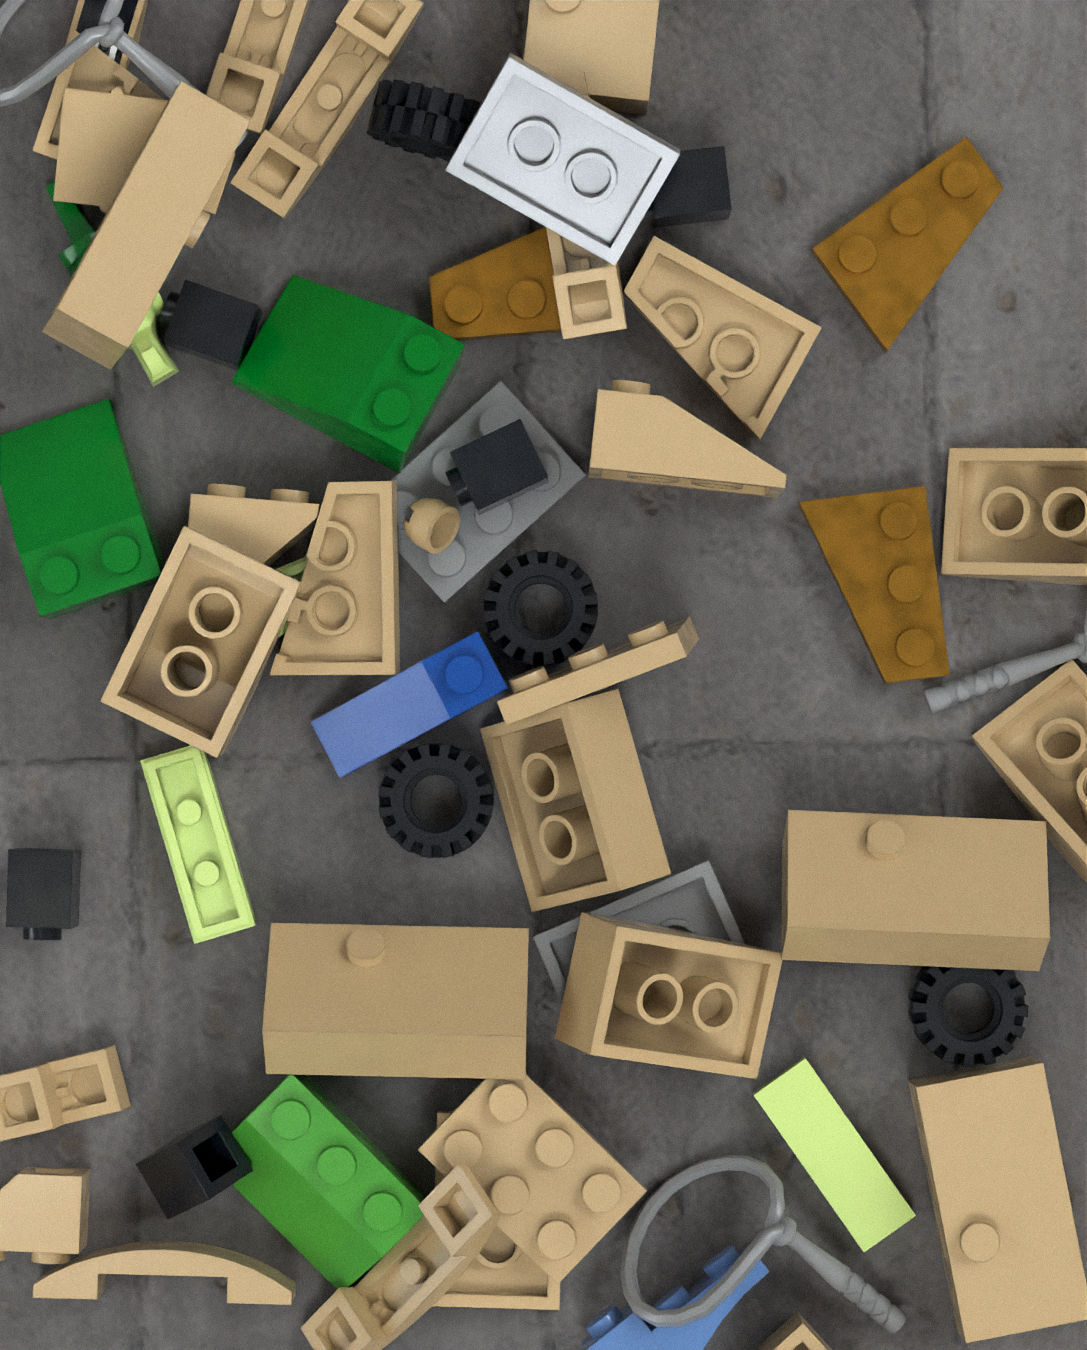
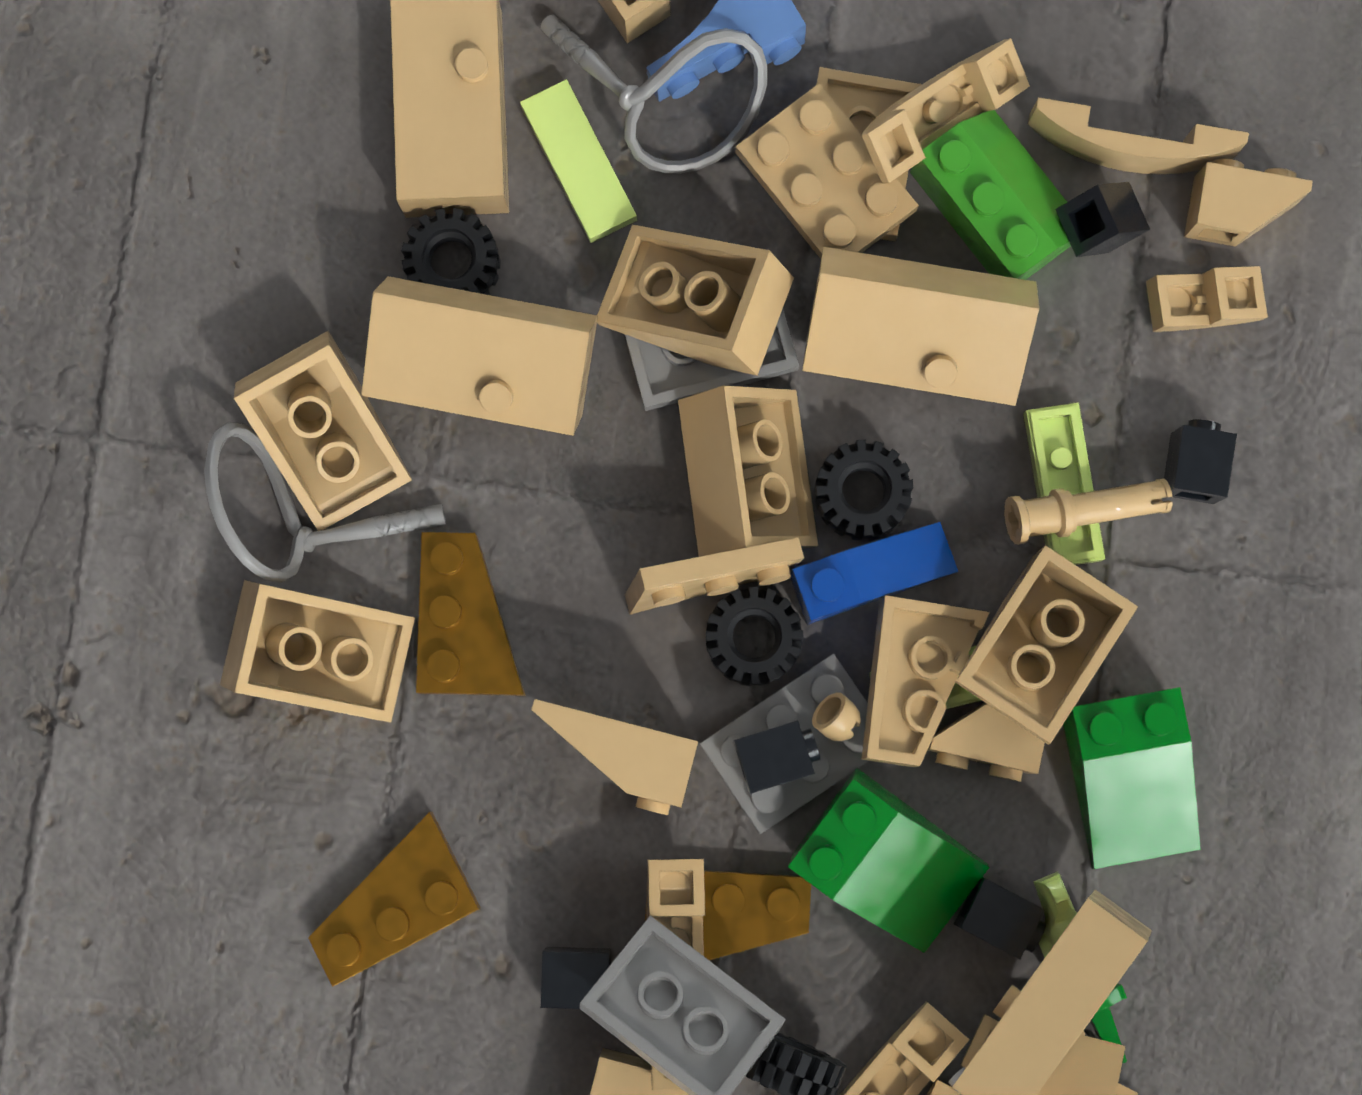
camera: 170 degrees left, 5 degrees down
(197, 805) = (1065, 511): none -> tan pin
(723, 330) = (565, 850): tan wing -> none

